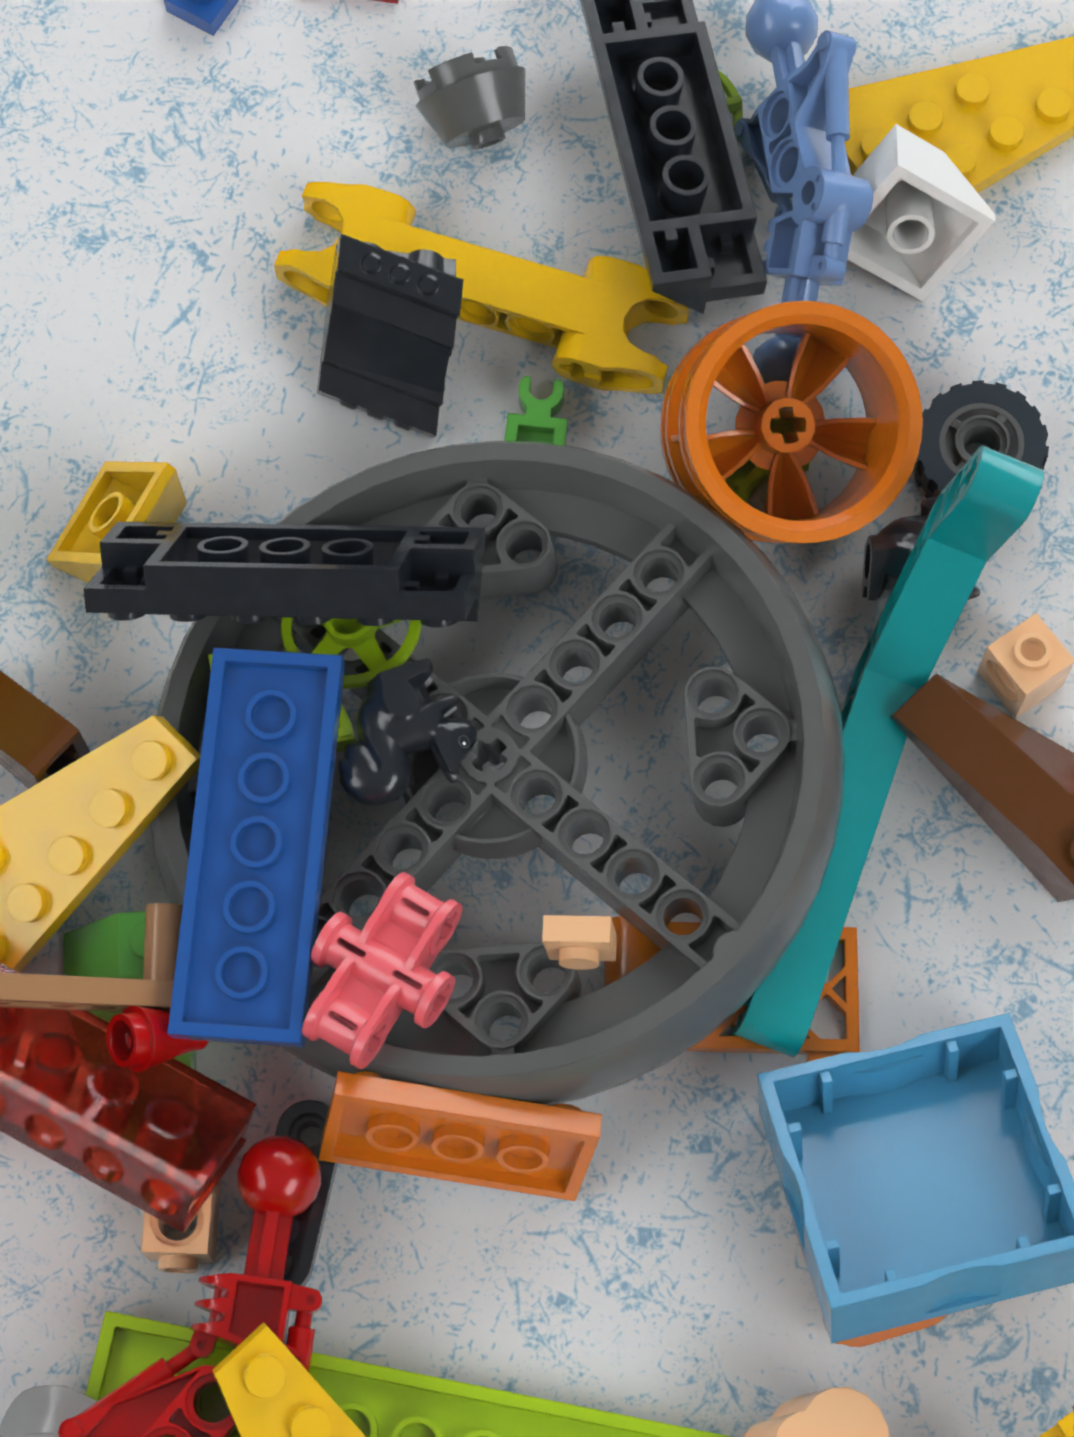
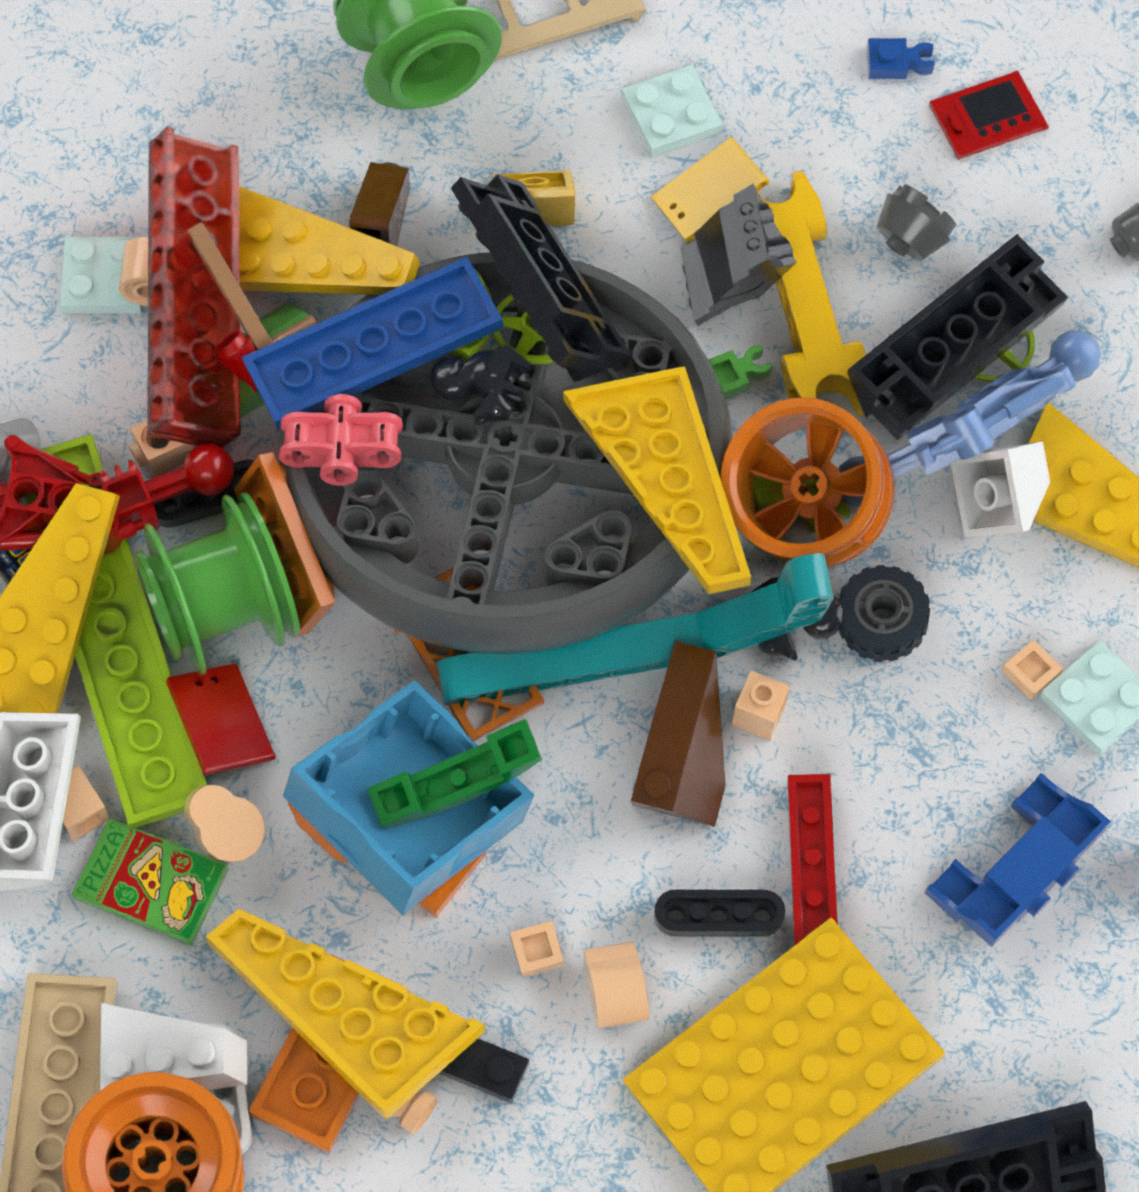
camera: 55 degrees right, 5 degrees down
(103, 288) = (671, 110): none -> light aqua plate
(261, 306) = (708, 187): none -> yellow container
(479, 1256) = (218, 583): none -> bright green wheel
(579, 940) = (414, 523): light nougat plate -> none
(647, 1367) = (220, 719): none -> red container
(660, 569) = (662, 453): none -> yellow wing
(936, 1097) = (457, 778): none -> green slope

